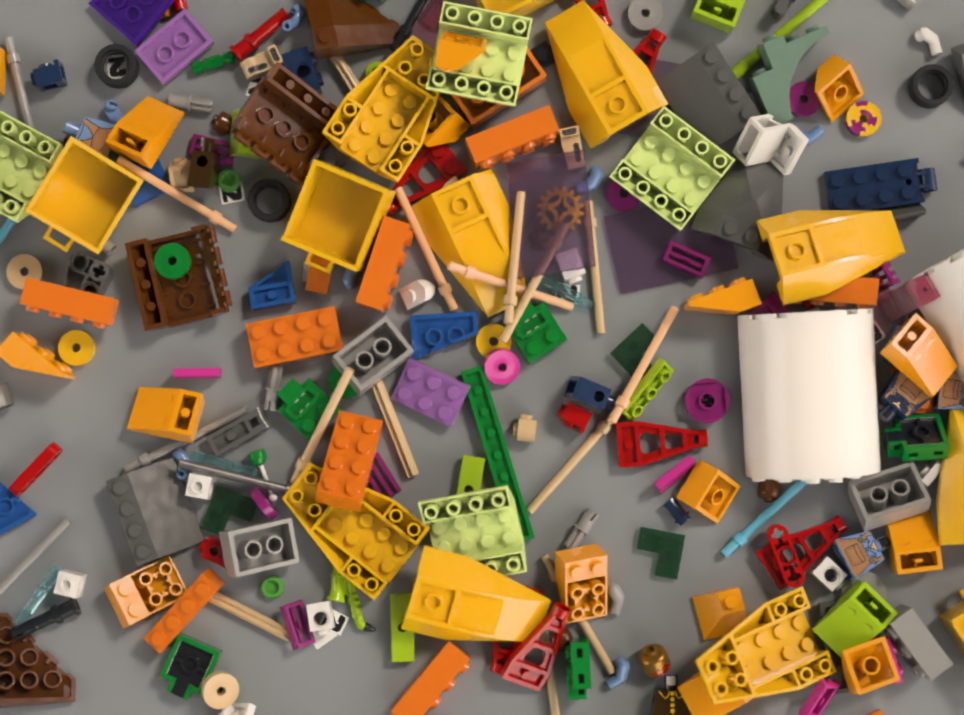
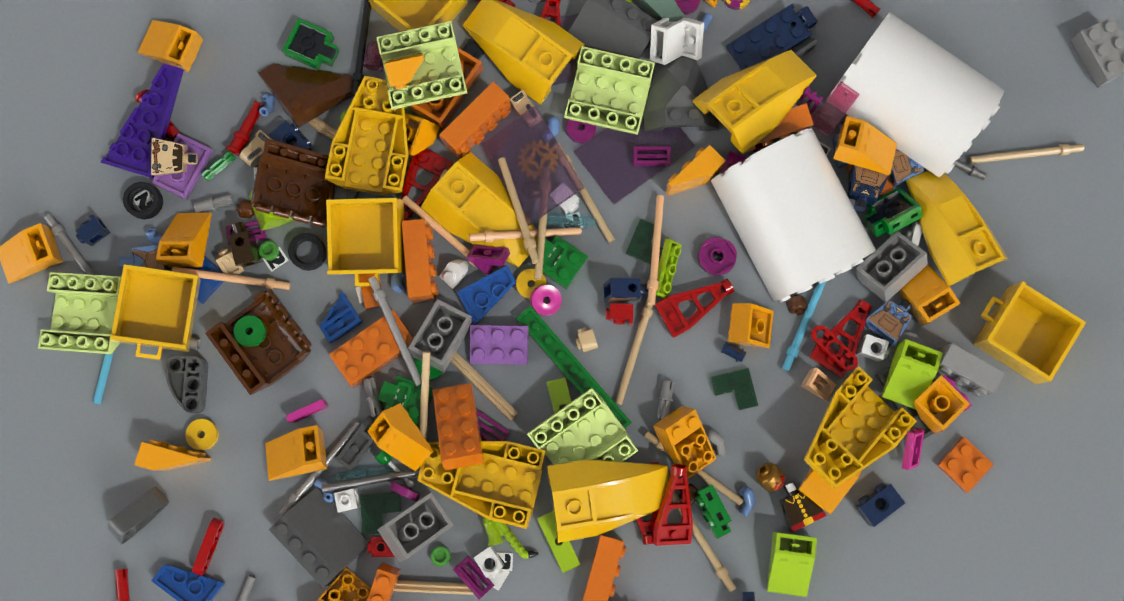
camera: 20 degrees left, 5 degrees down
(18, 264) = (144, 392): tan piece -> none
(69, 301) = (178, 399): orange brick -> none
(166, 34) = (170, 157): none -> tan torso
(284, 446) = (400, 437): none -> light orange slope
(326, 286) = (380, 296): none -> light grey bar
(459, 293) = (487, 257): none -> magenta slope
(675, 474) = (719, 323): dark pink tile -> none
(719, 611) = (803, 415): light orange slope -> none
(751, 585) = (818, 384): none -> light nougat slope

